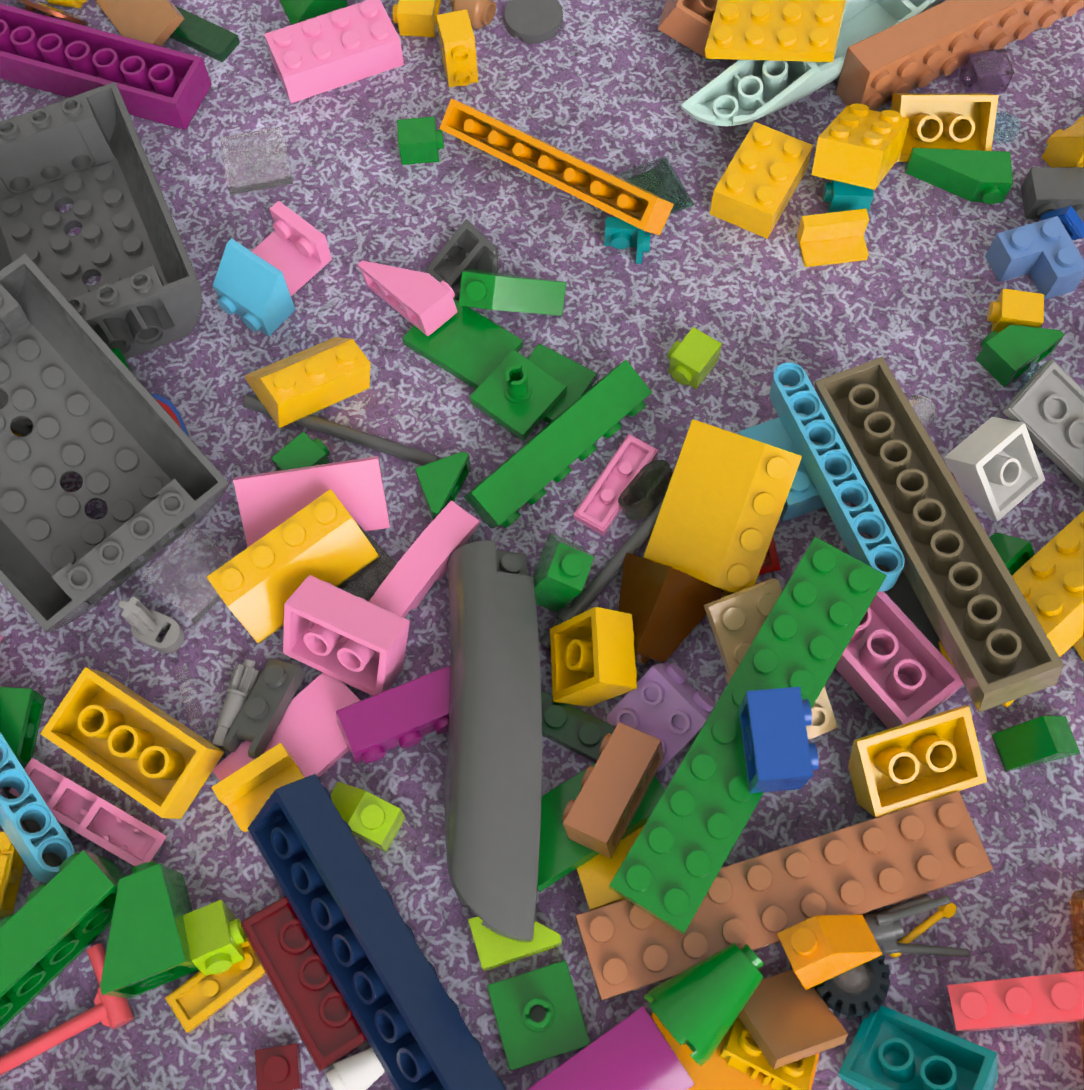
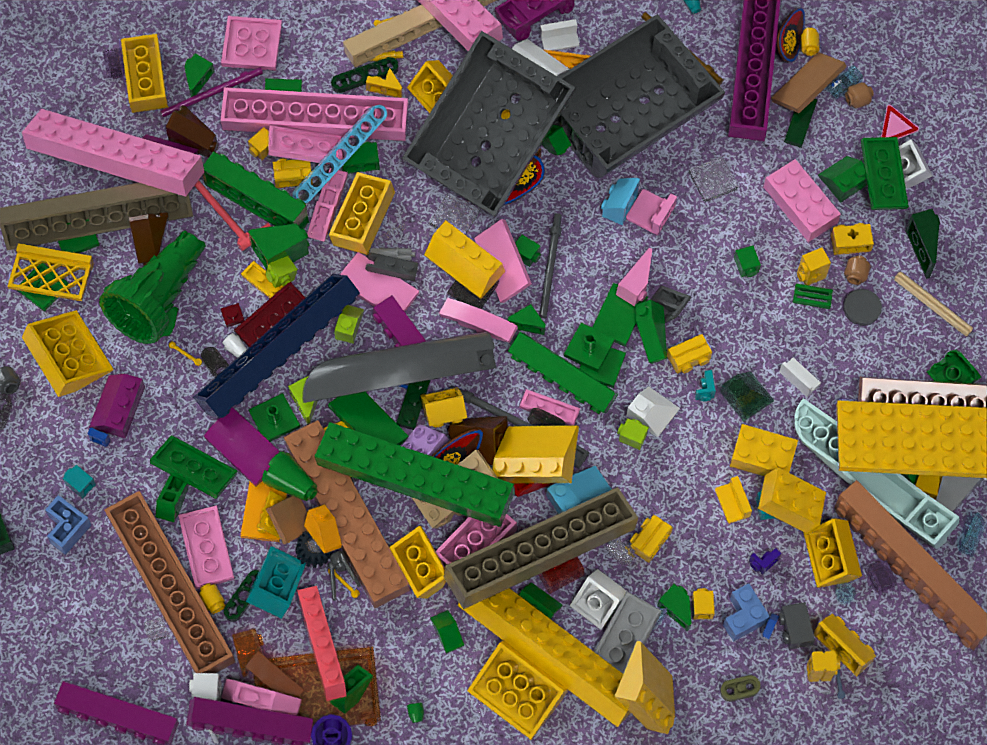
camera: 75 degrees right, 0 degrees up
(147, 625) = (422, 203): light grey piece -> none
(254, 783) = (355, 271): yellow panel -> none
(311, 380) = (574, 241): yellow slope -> none
(344, 636) = (432, 291): bright pink brick -> none
(489, 67) = (827, 305): none -> green tile
(557, 167) = (735, 334): light orange brick -> none
(560, 572) = (490, 384): green slope -> none
(564, 249) = (689, 354): none -> yellow brick
(613, 789) = (380, 425): nougat brick -> none
(635, 114) = (799, 377): none -> white panel
(651, 326) = (652, 410): none -> white slope
(695, 651) = (460, 446): none -> shield
(777, 739) = (400, 469): blue brick -> none
(834, 457) = (569, 494): medium azure beam -> none
(906, 367) = (651, 538): none -> yellow brick
(948, 212) = (767, 561): none -> dark purple bracket
(966, 173) = (799, 575): green slope -> none

